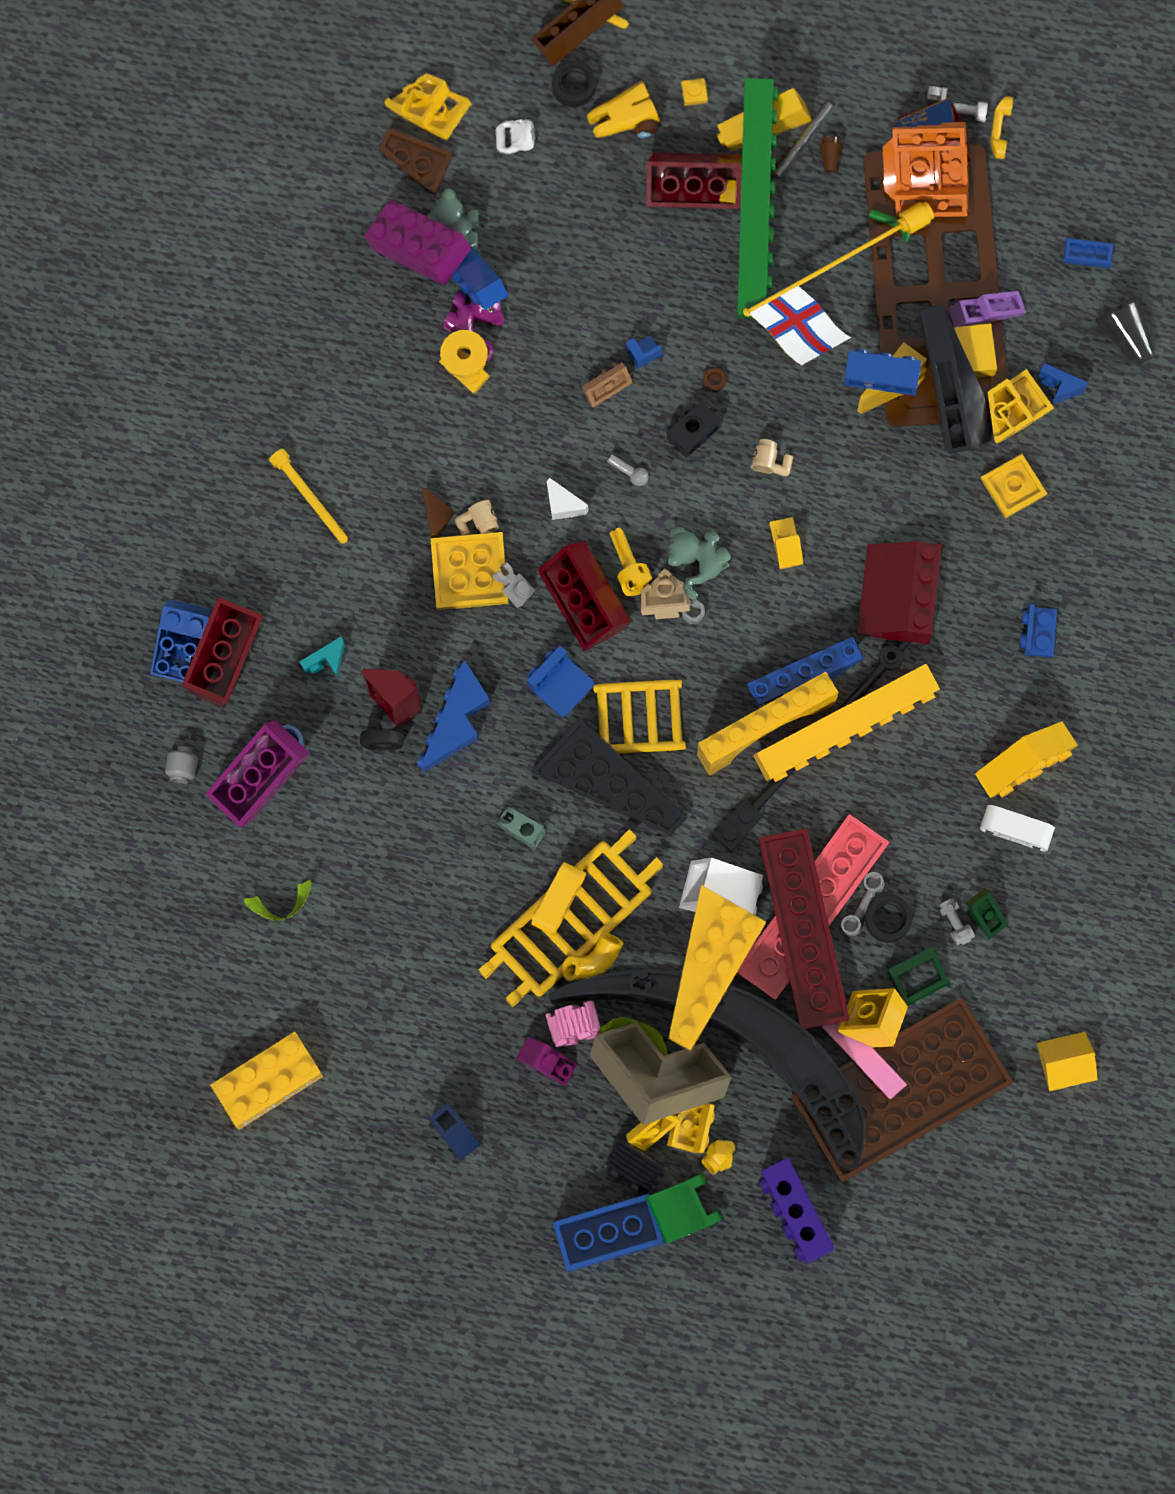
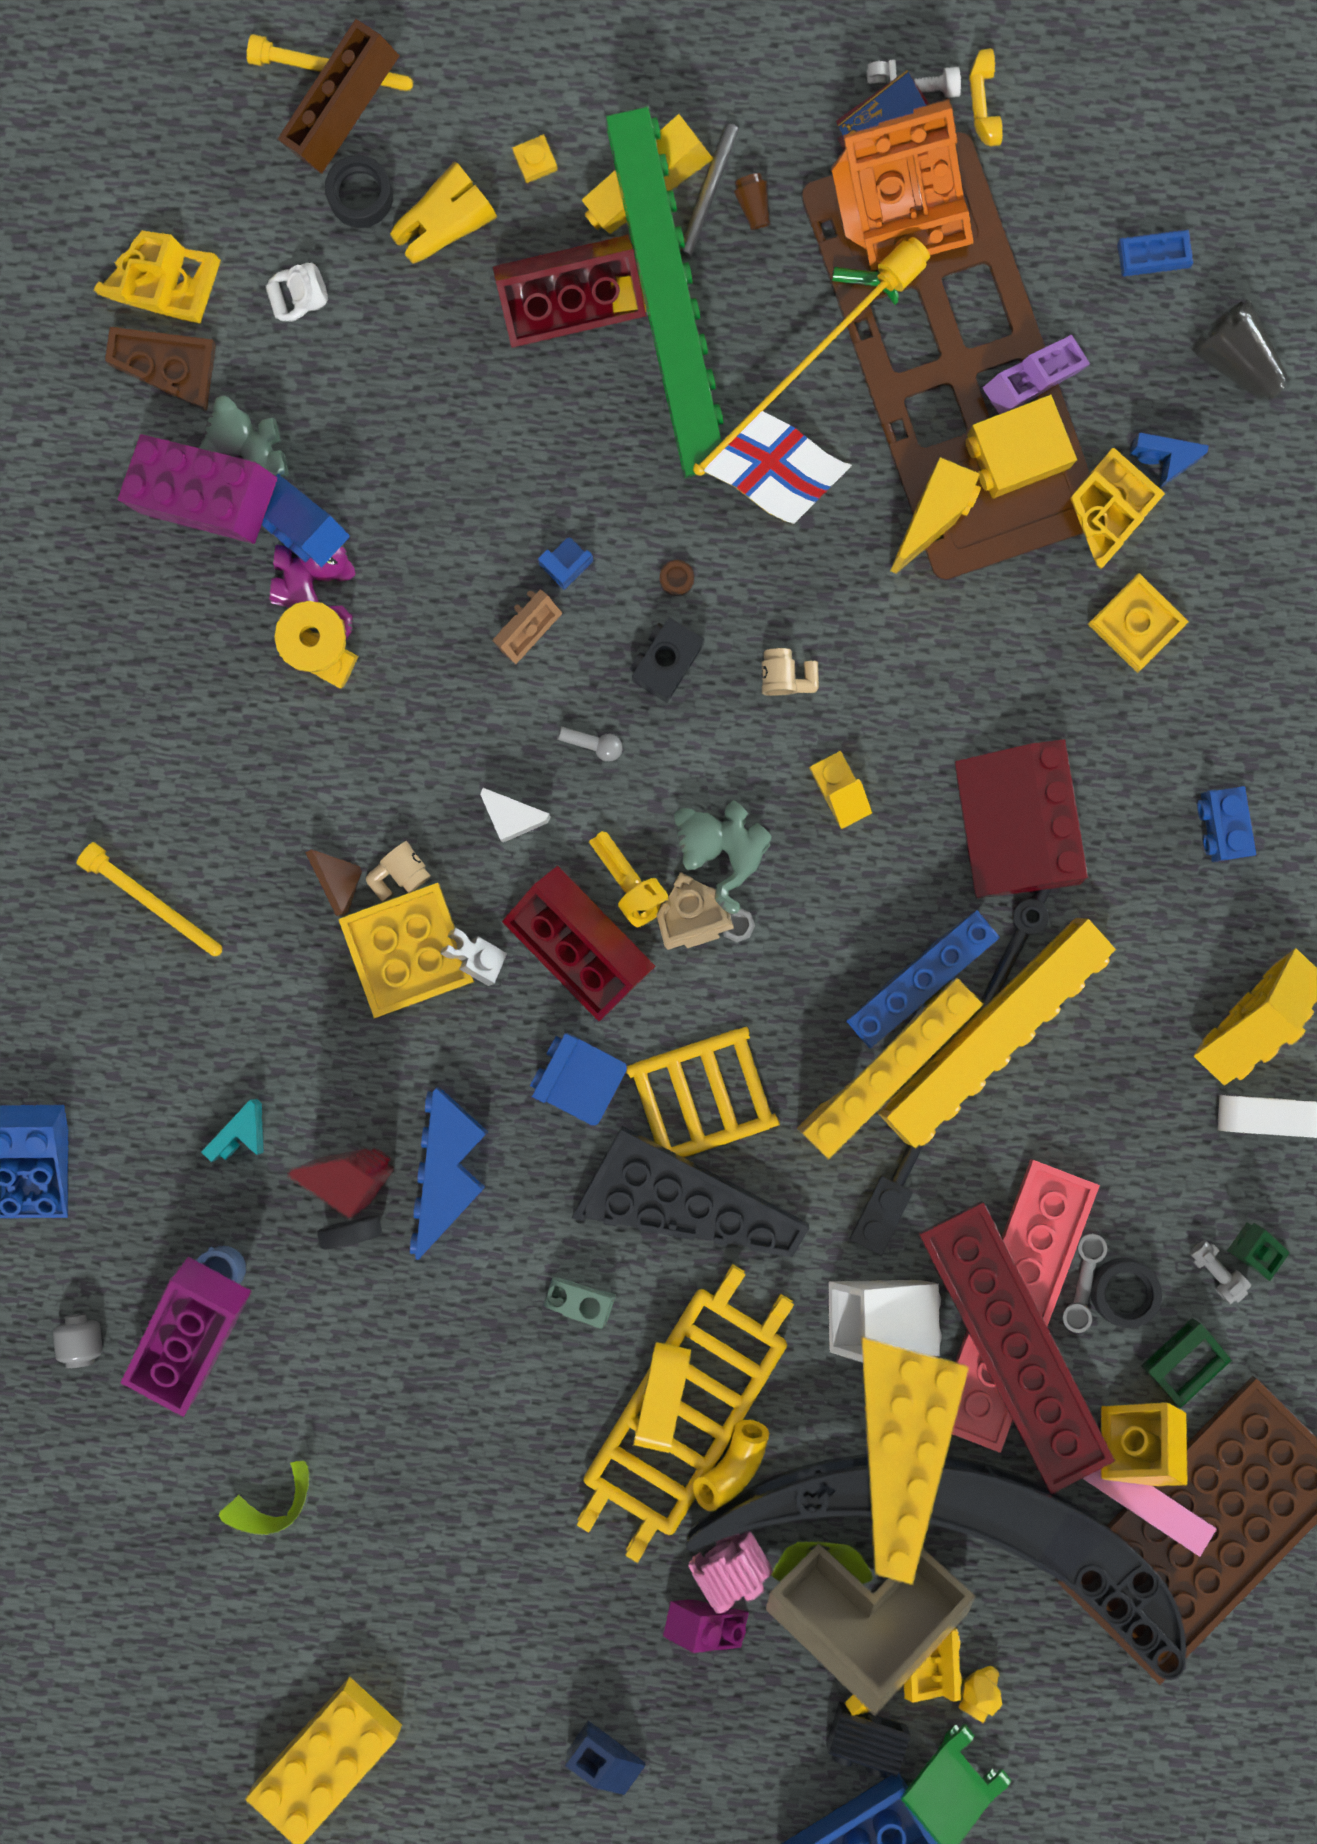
camera: 20 degrees left, 10 degrees up
(221, 652) = (85, 1169): dark red slope -> none
(646, 129) = (480, 232): reddish brown tile -> none
(784, 1174) = (1111, 1753): dark purple brick -> none
(882, 372) = (924, 511): blue brick -> none
(955, 386) = (1024, 500): black wedge -> none

